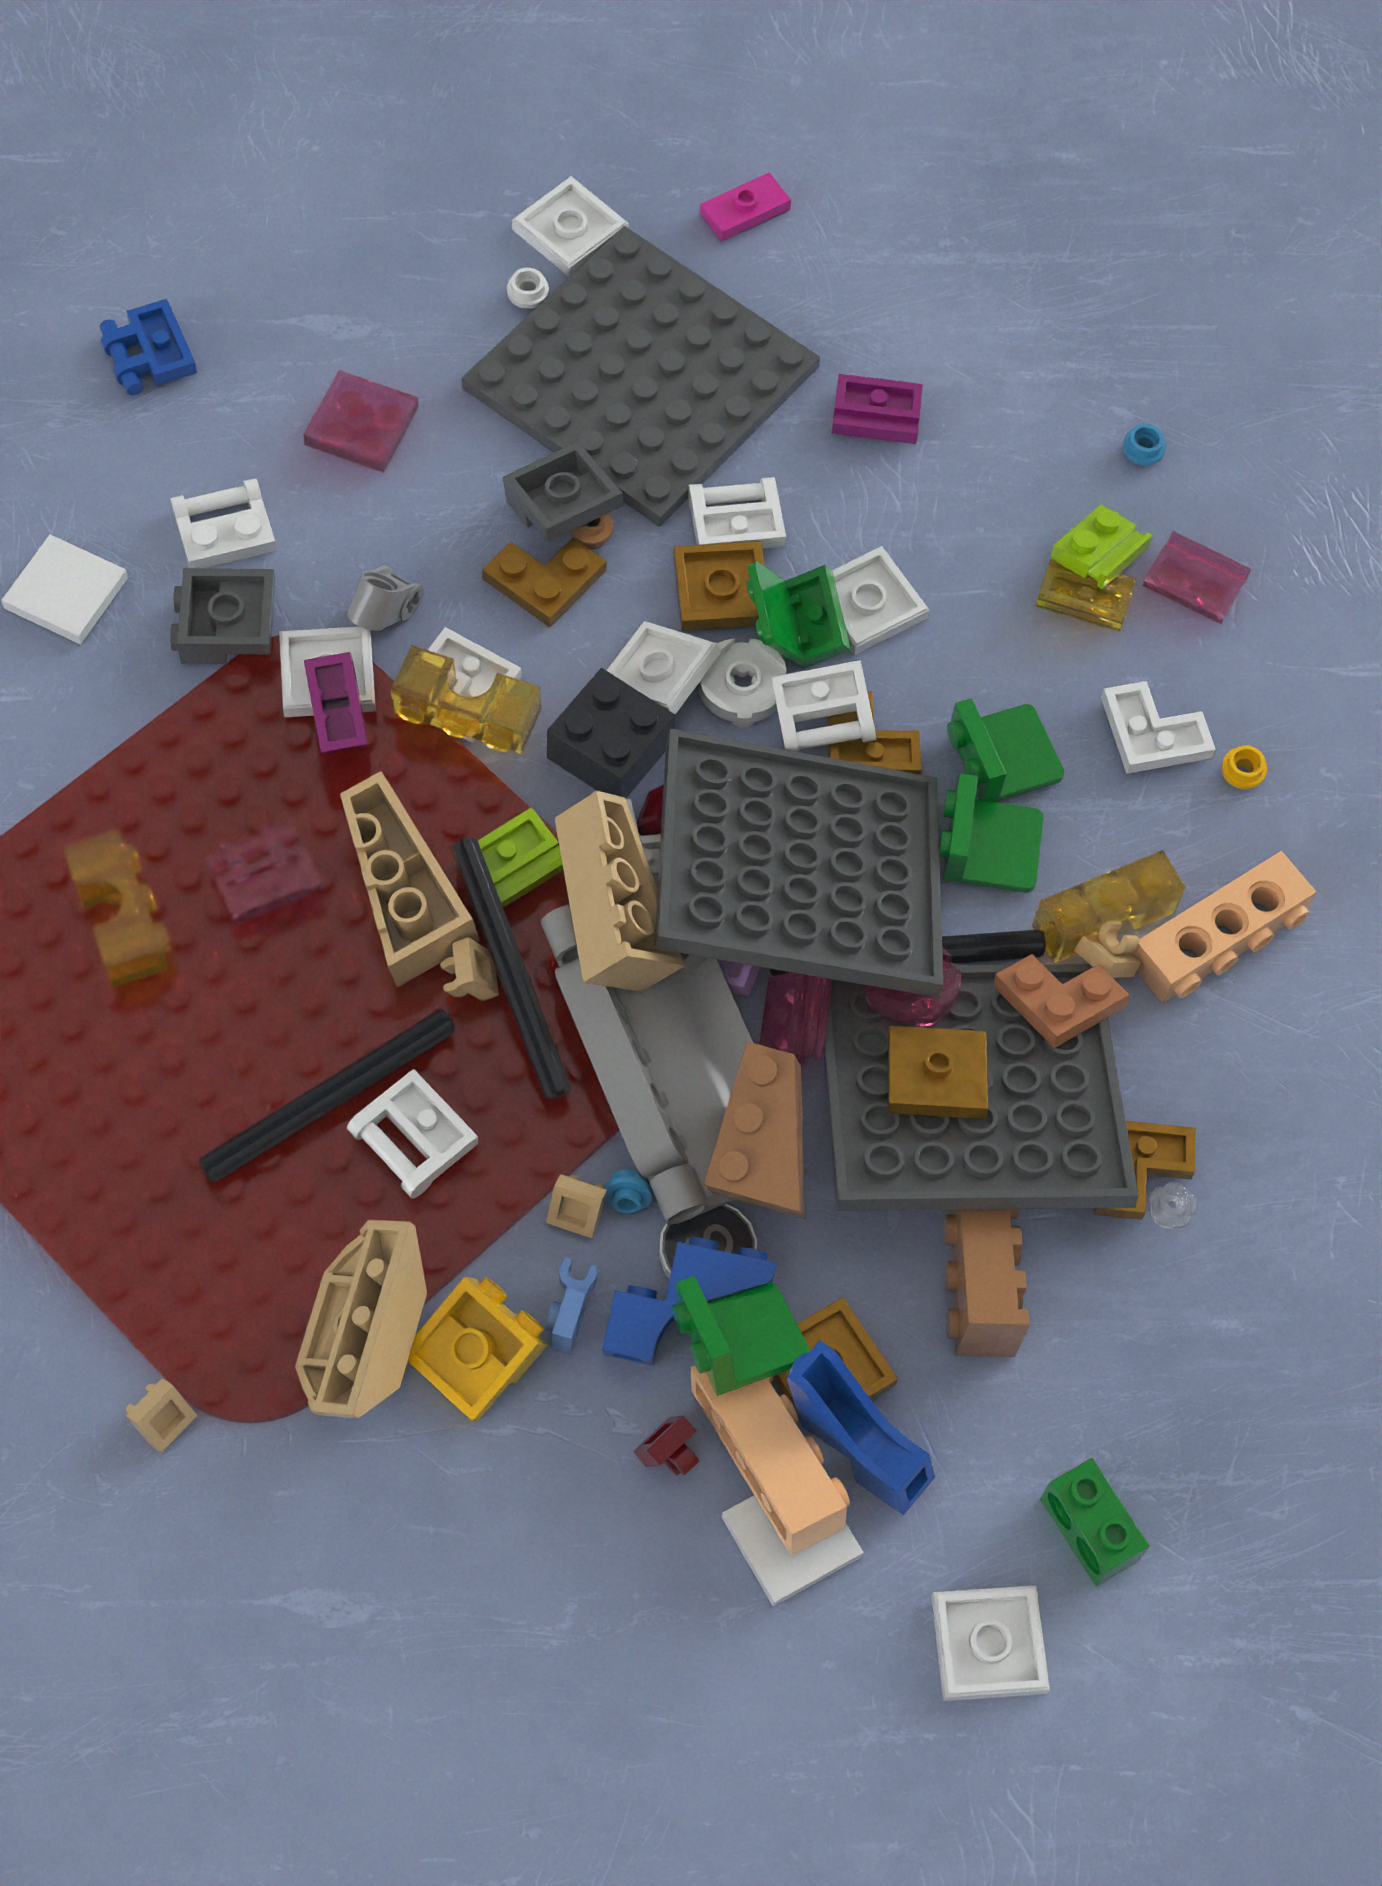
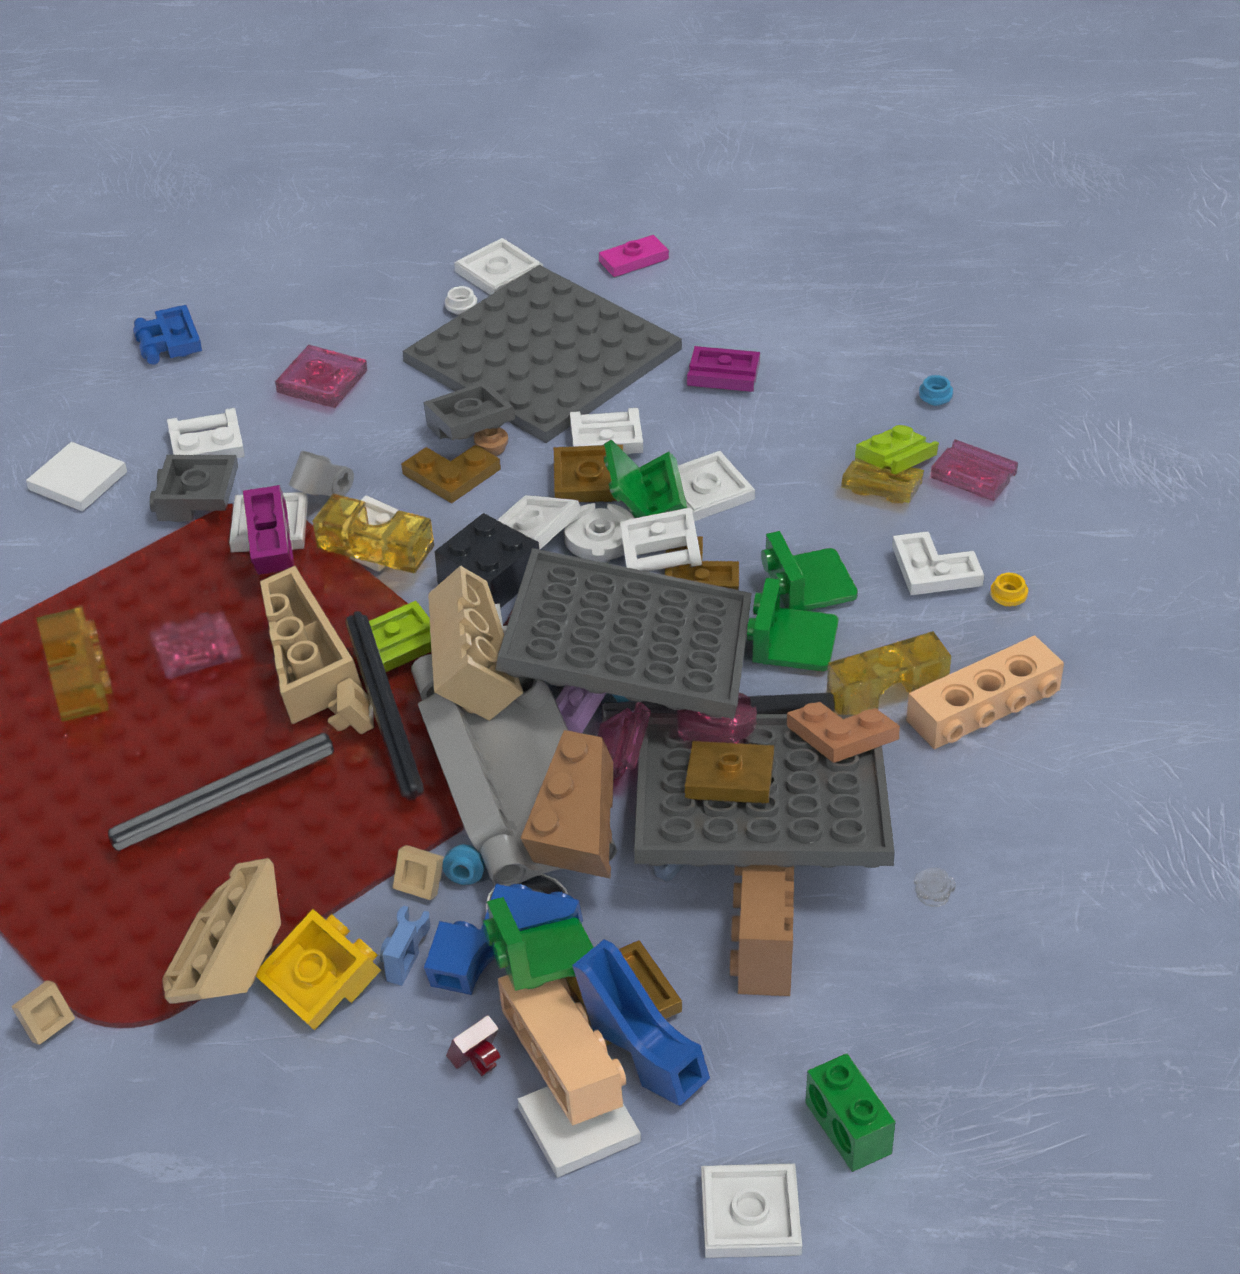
camera: 10 degrees right, 20 degrees down
(424, 1121) = (297, 807): white plate -> none
(1109, 953) = (889, 702): tan tile -> none
(1156, 1152) = (913, 845): pearl gold plate -> none

